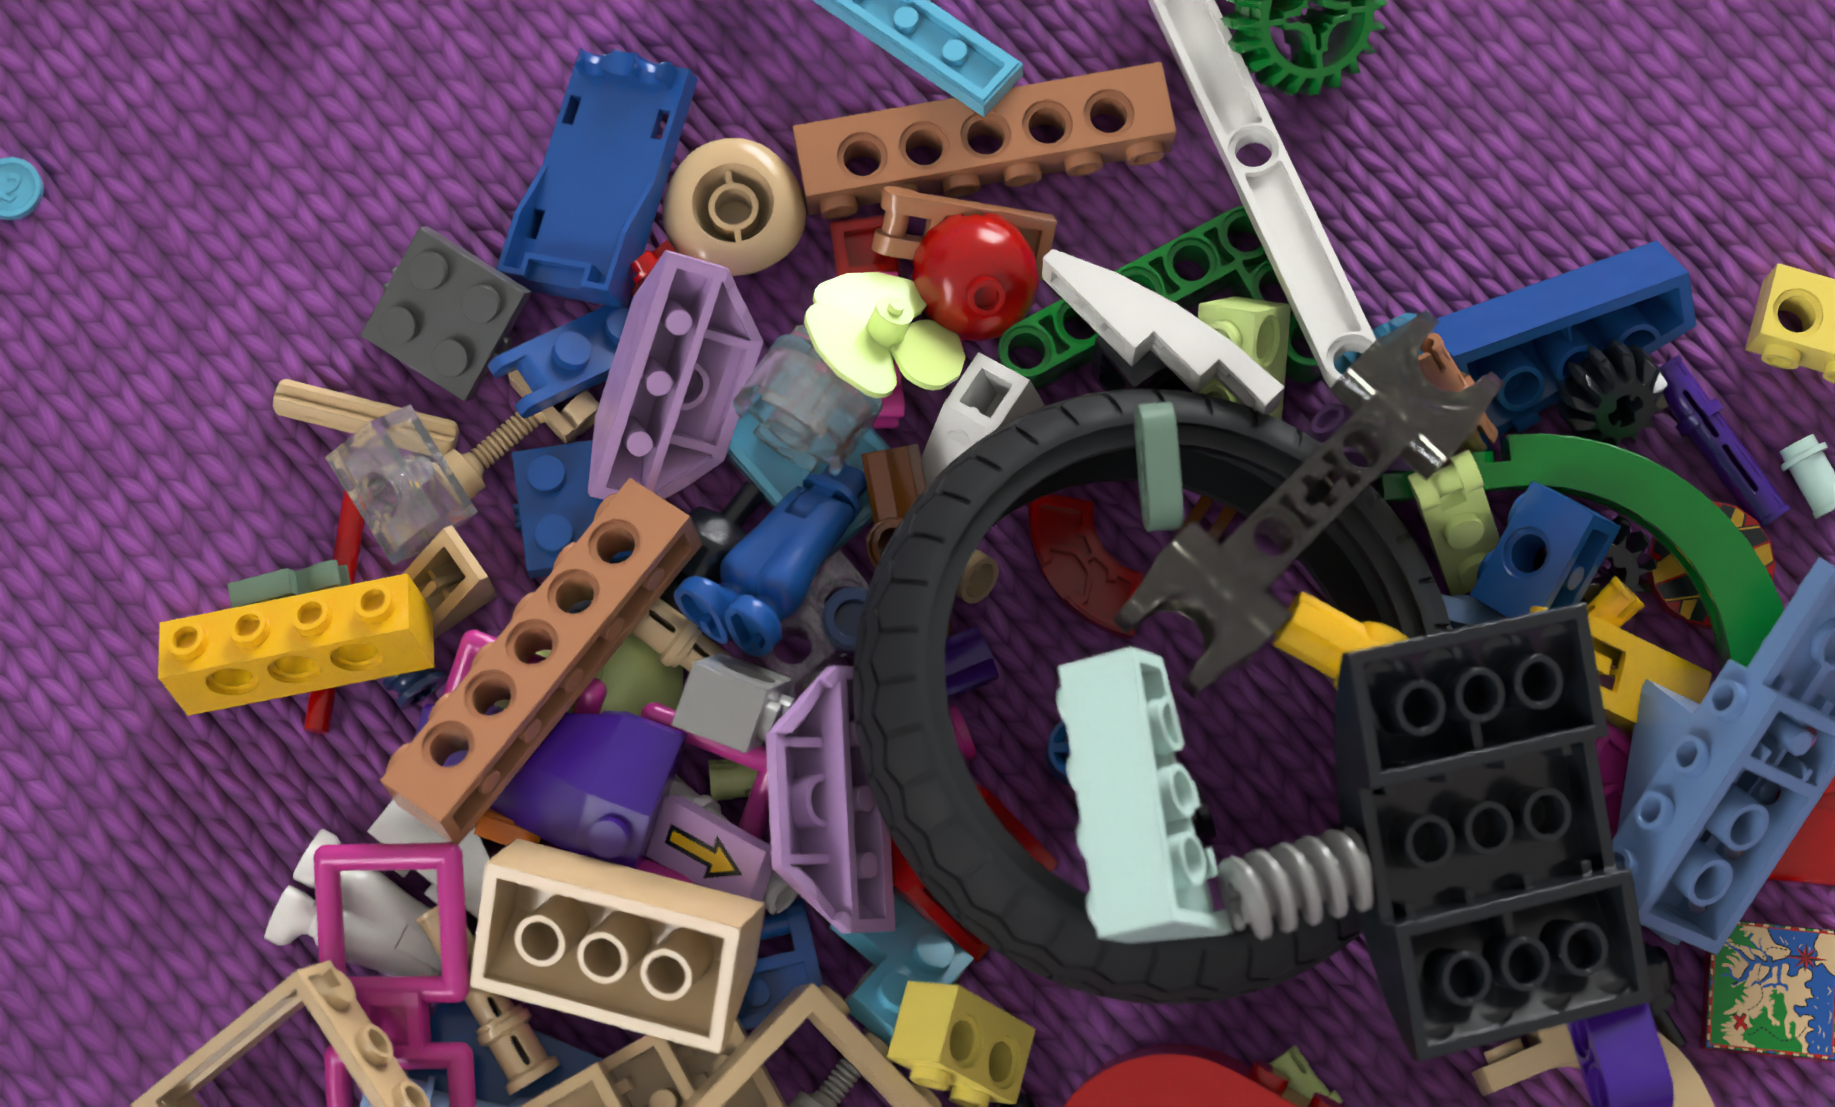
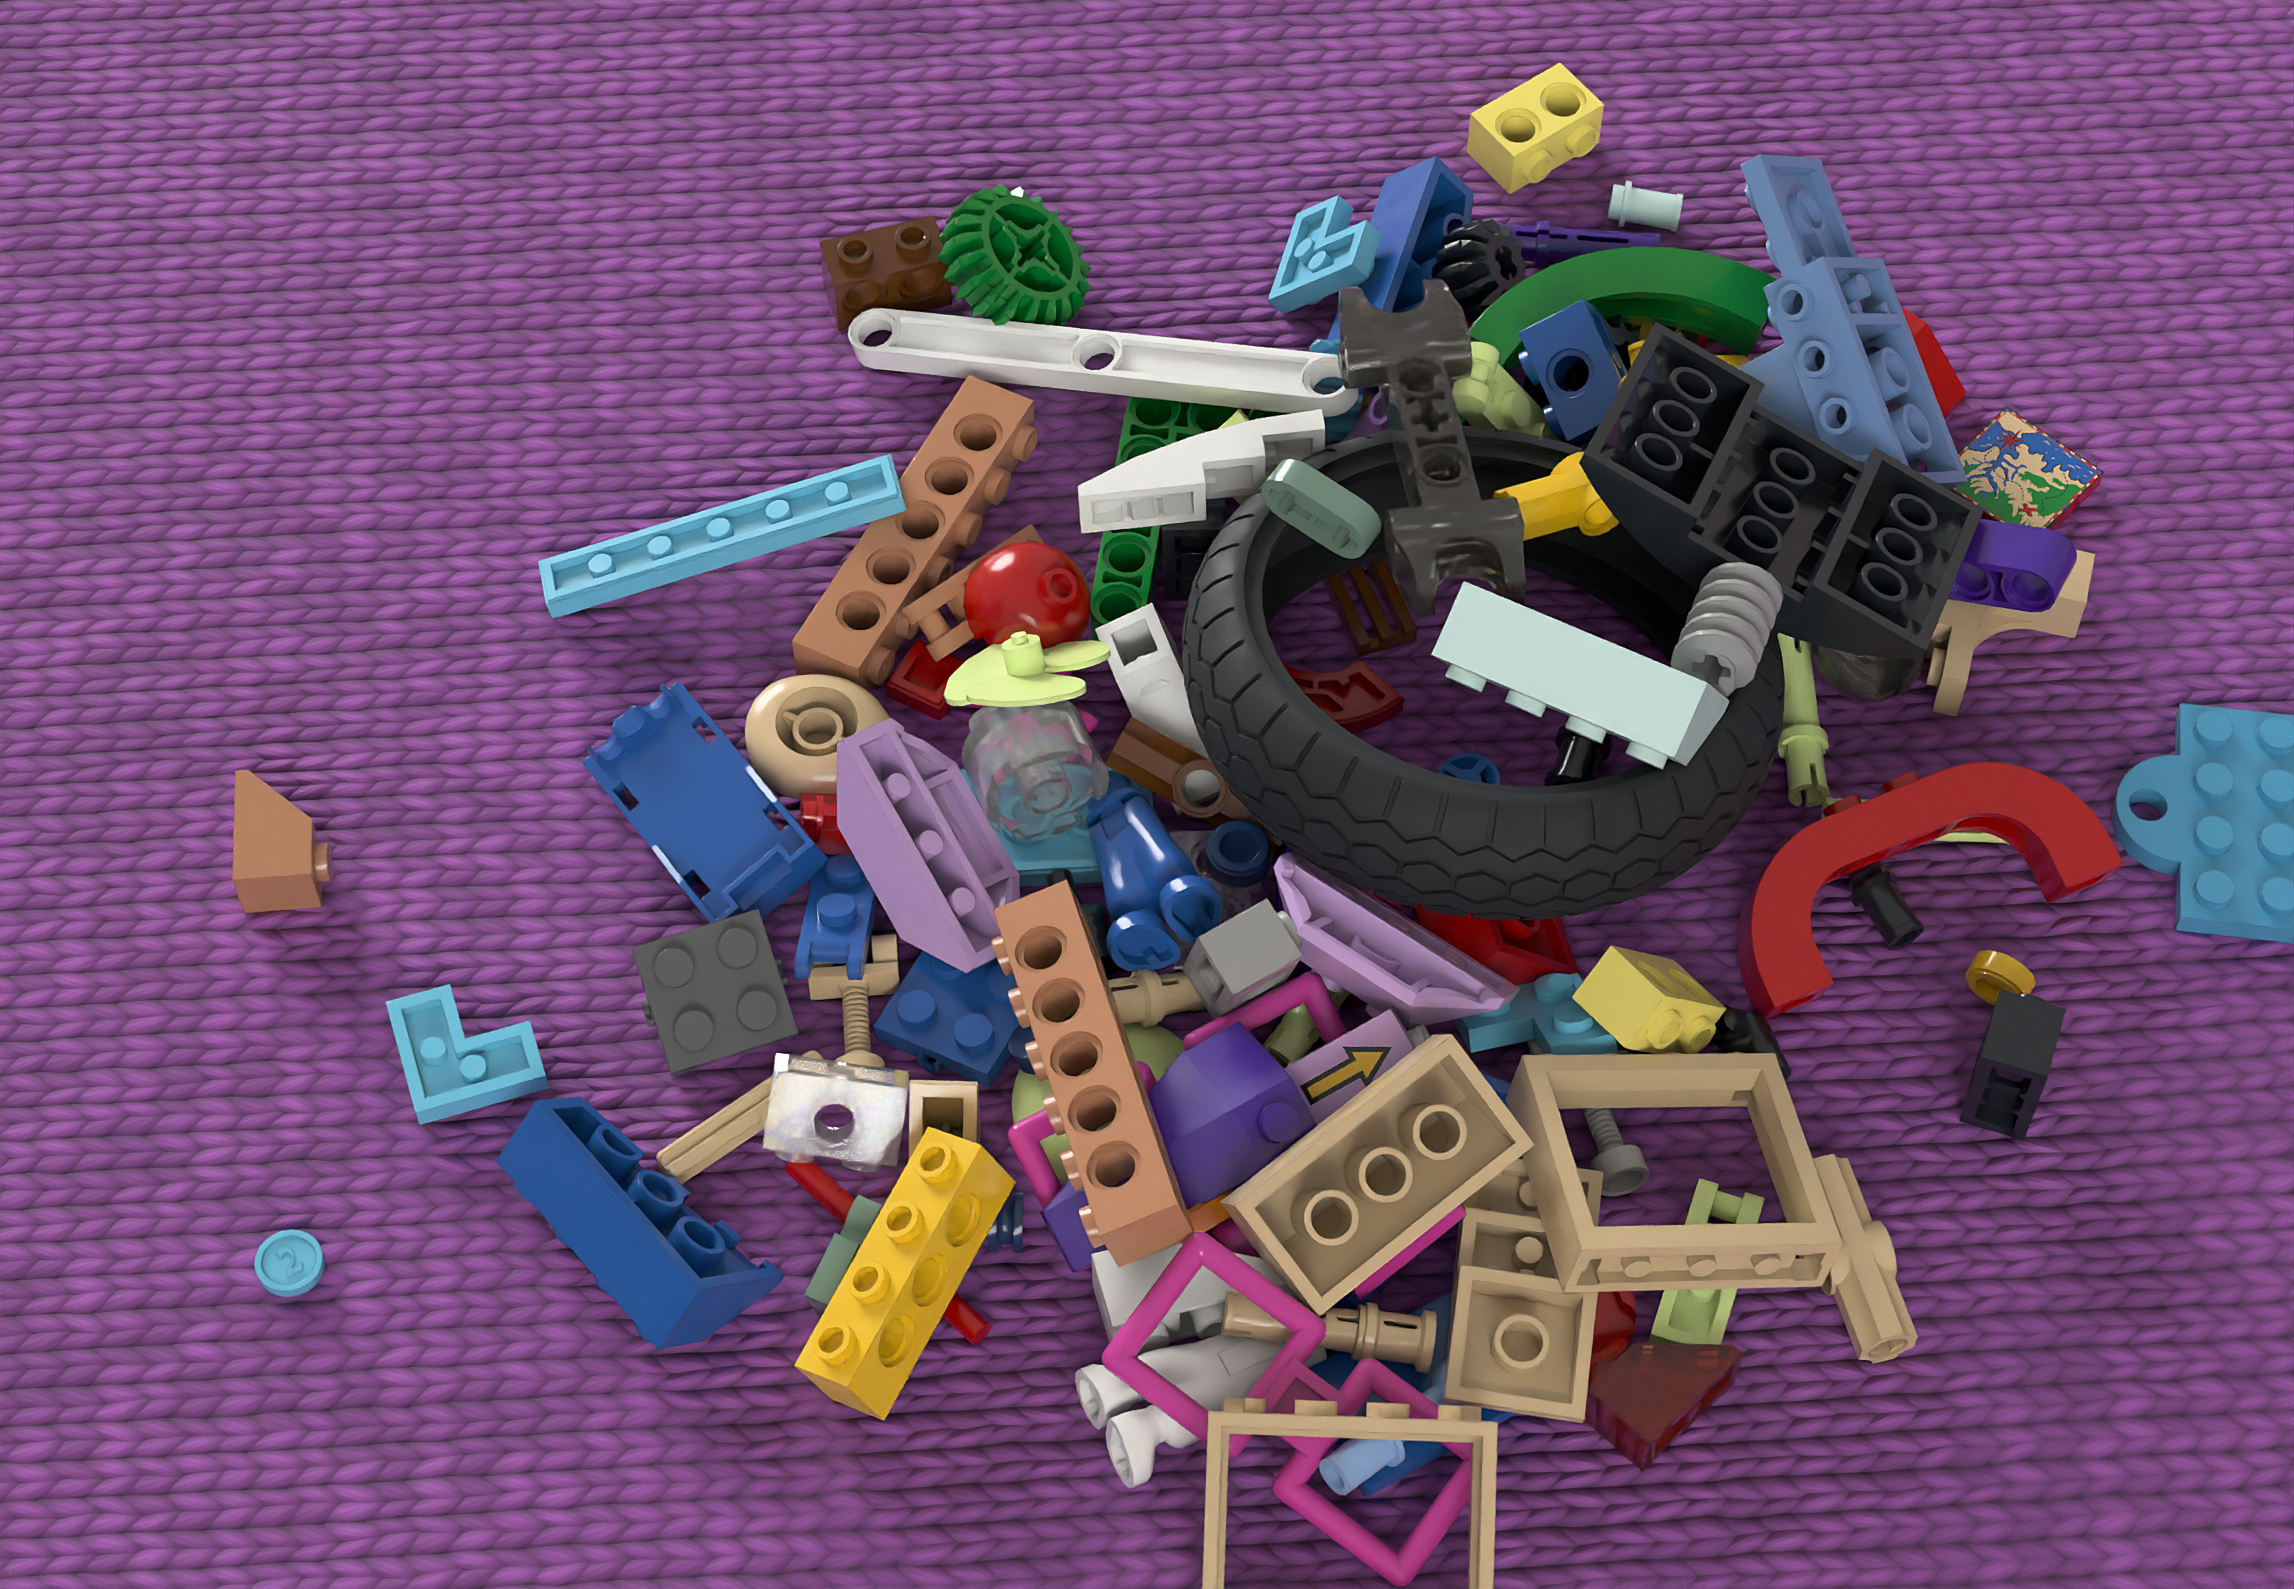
camera: 50 degrees left, 20 degrees down
(205, 412) = (631, 1225): none -> blue wedge
(241, 175) = (457, 1072): none -> medium azure plate
(1335, 994) = (1802, 738): none -> yellowish green pin
(1521, 250) = (1323, 255): none -> medium azure plate

